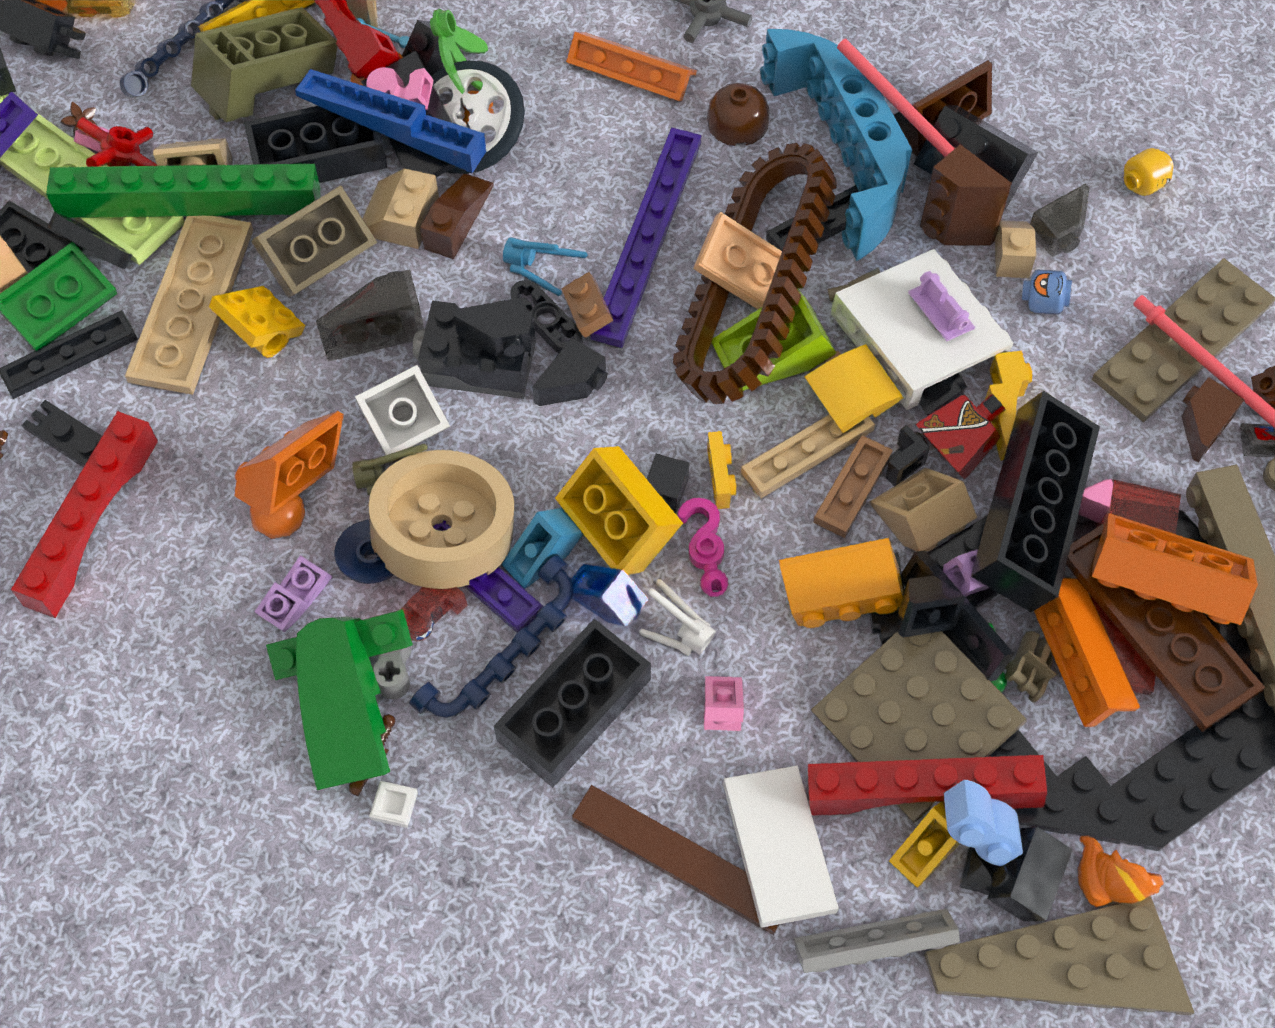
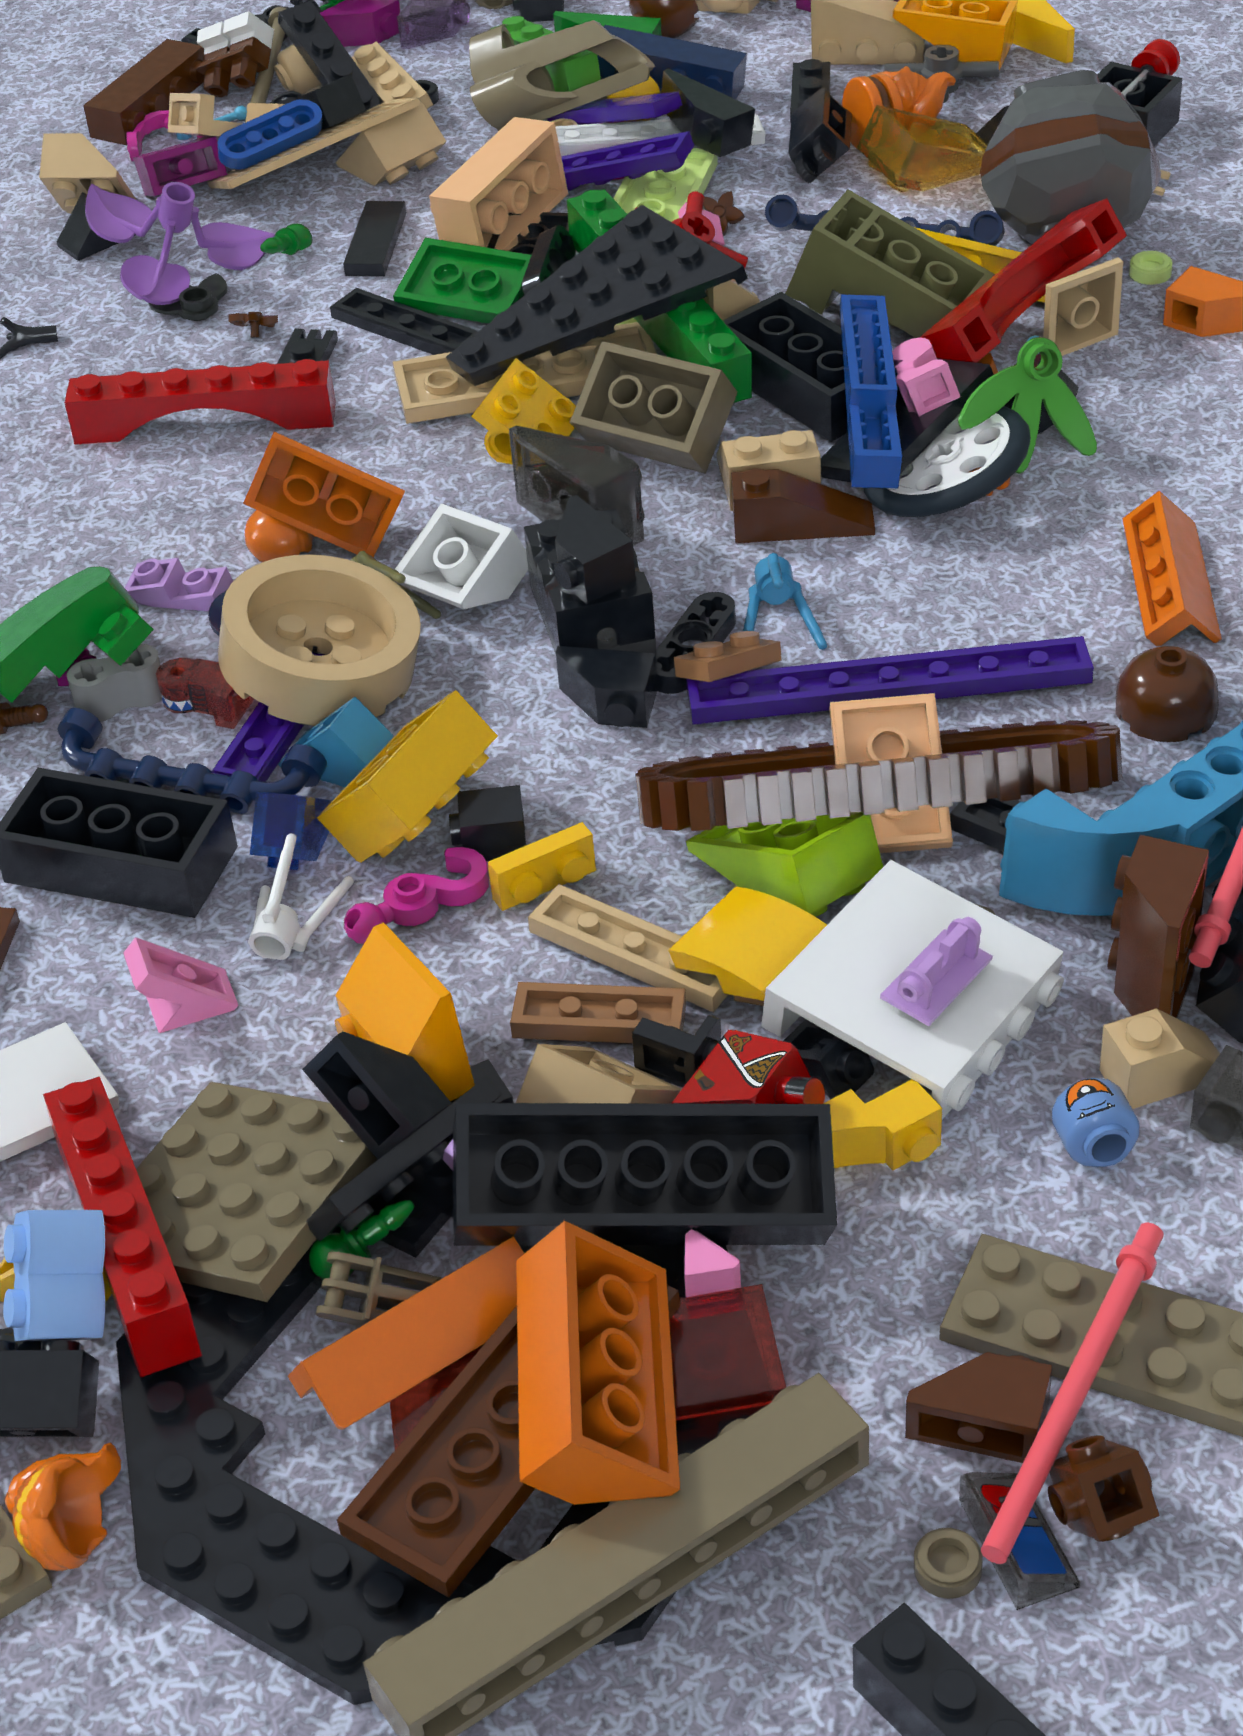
camera: 70 degrees right, 20 degrees down
(181, 212) = (627, 272): none -> black wing

